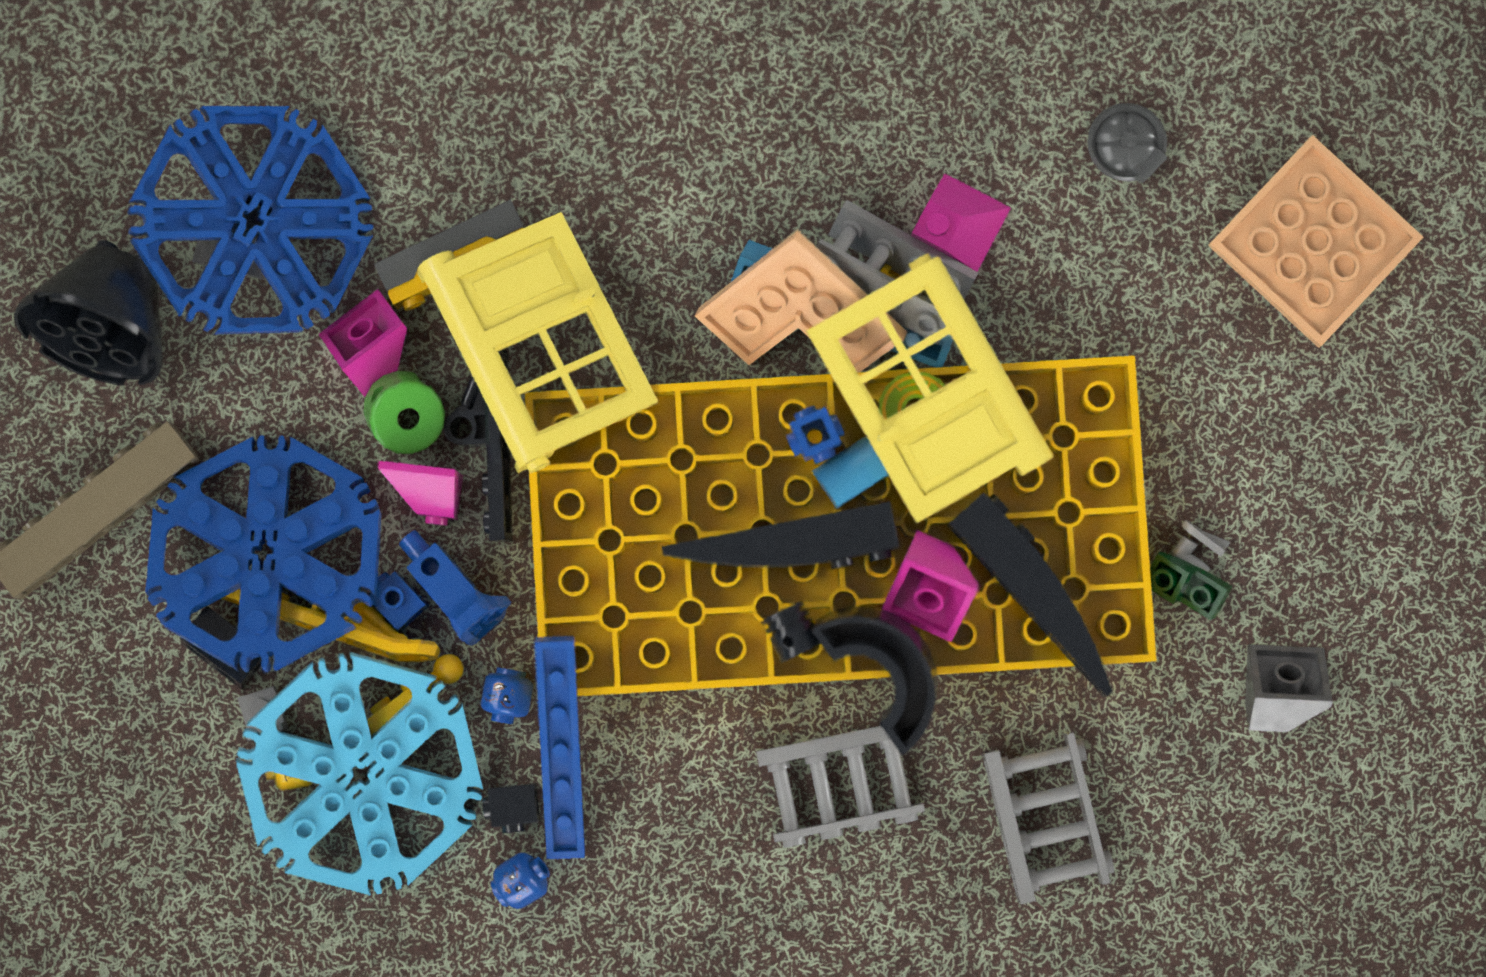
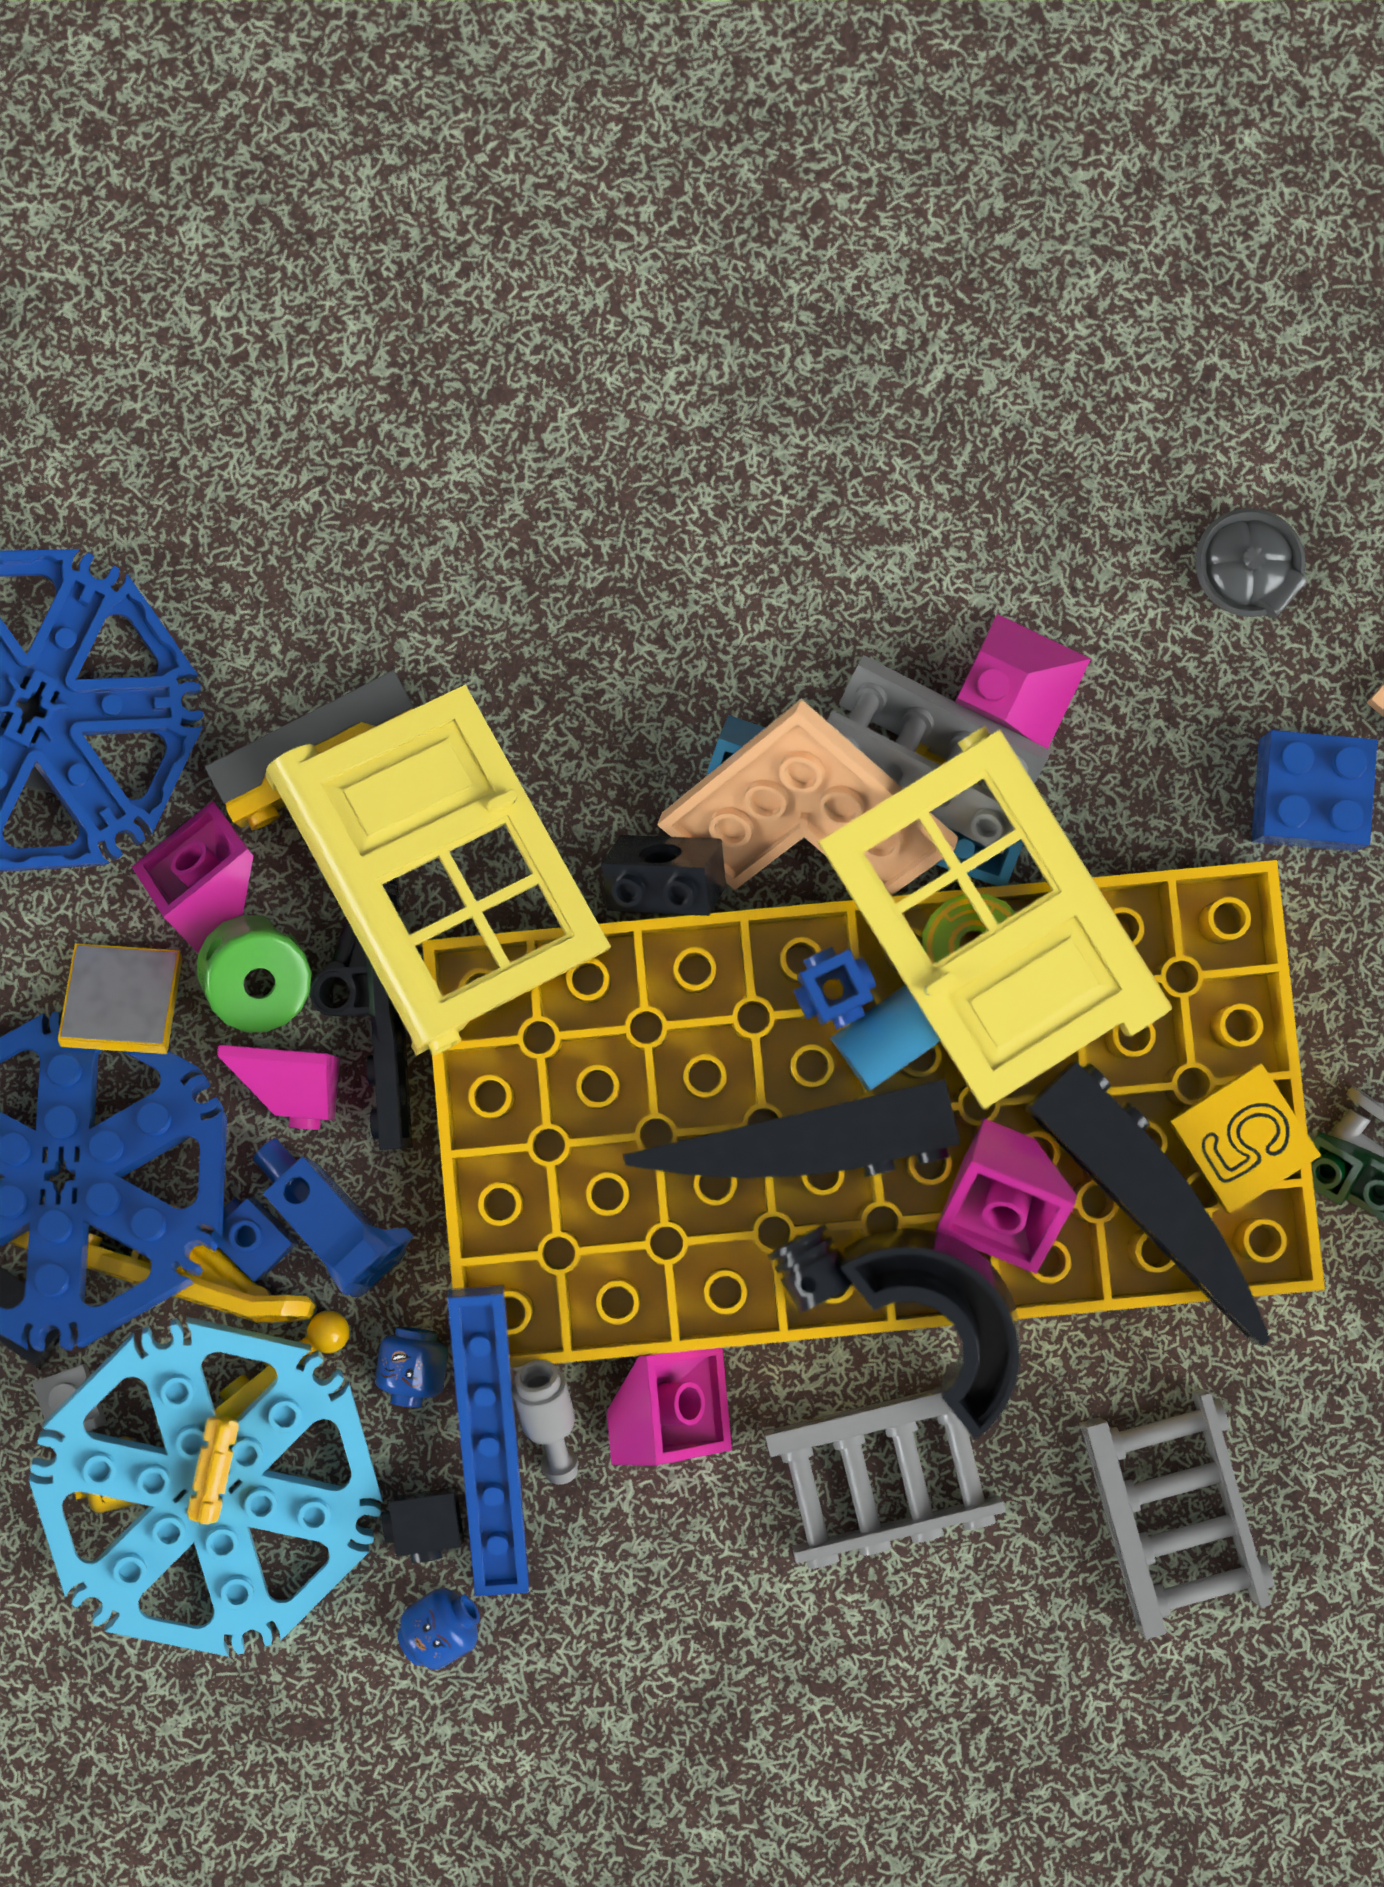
camera: 10 degrees left, 0 degrees up
(308, 427) = (120, 998): none -> flat silver tile
(365, 759) = (212, 1469): none -> yellow axle
(602, 732) = (547, 1416): none -> light grey piece
(690, 730) = (670, 1409): none -> dark pink slope
(698, 352) = (664, 875): none -> black brick
(1102, 551) = (1244, 1138): none -> yellow tile
(1166, 307) = (1314, 791): none -> blue brick

